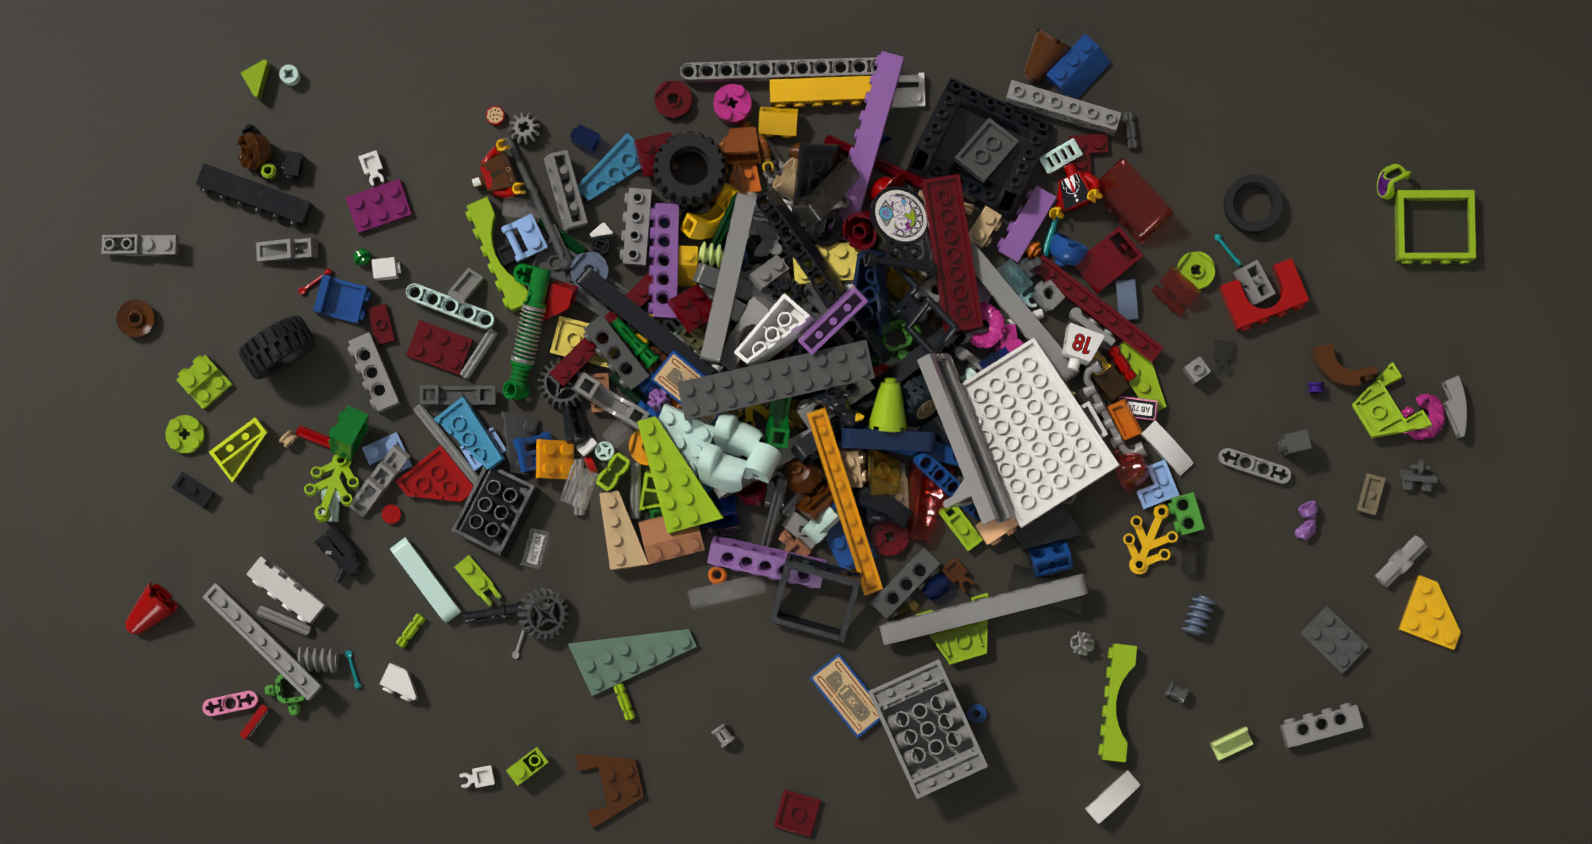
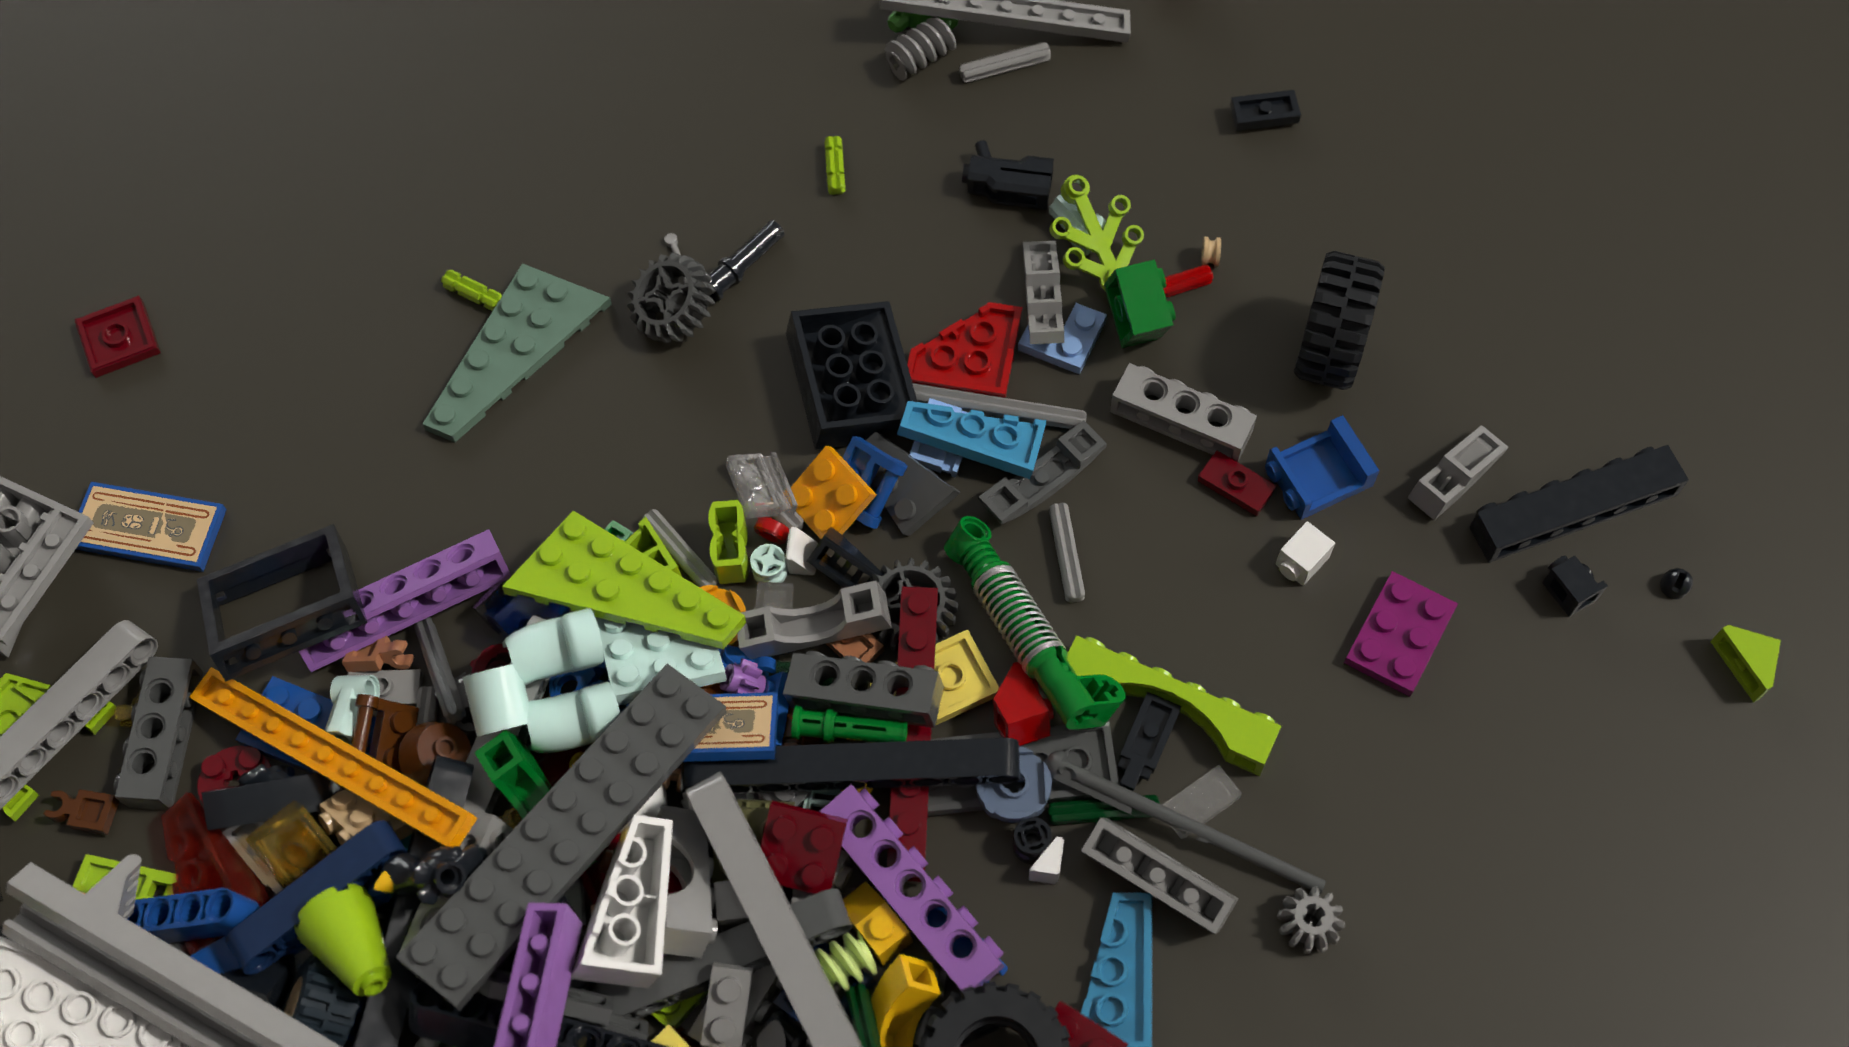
camera: 135 degrees right, 20 degrees down
(129, 311) = (1556, 225): reddish brown dish -> none
(140, 245) = (1647, 321): light grey slope -> none
(176, 427) = (1347, 147): lime plate -> none
(203, 381) = (1390, 234): lime plate -> none
(239, 447) = (1260, 186): neon yellow wedge -> none
(254, 150) = (1643, 555): reddish brown cone -> none
(269, 167) = (1593, 545): lime pin -> none
(286, 589) = (1037, 86): white wedge -> none
(292, 78) = (1705, 711): light aqua wheel -> none
(302, 291) = (1383, 443): red hinge -> none
(348, 654) = (889, 87): teal hinge -> none
(362, 256) = (1352, 544): green plate -> none
(371, 165) = (1469, 678): white plate -> none
(391, 514) = (990, 273): red tile -> none
(400, 681) = (791, 99): white slope -> none
(425, 580) = (870, 229): light aqua beam -> none
(439, 347) = (1129, 518): dark red plate -> none
(443, 300) = (1176, 566): light aqua beam -> none
(465, 286) = (1172, 619): light grey tile -> none
(477, 579) = (800, 283): lime hinge -> none
(481, 777) = (594, 78): white plate -> none
(495, 115) = (1372, 904): tile -> none
(498, 173) = (1281, 817): torso -> none
(527, 766) = (539, 119): lime slope -> none
(530, 234) = (1148, 764): light blue plate -> none
(535, 548) = (758, 377): clear tile -> none
(585, 138) = (1206, 984): clear blue brick -> none
(619, 782) = (404, 202): reddish brown wing -> none
(621, 537) = (643, 470): tan wedge -> none
(637, 227) = (1003, 915): light grey brick -> none
(663, 545) = (574, 490): nougat slope -> none
(711, 574) = (461, 527): orange plate -> none
(723, 735) = (295, 347): light grey bush -> none
(726, 591) = (434, 519): clear slope -> none
(783, 284) = (684, 1004): black gear -> none
(937, 587) = (102, 765): clear blue brick -> none

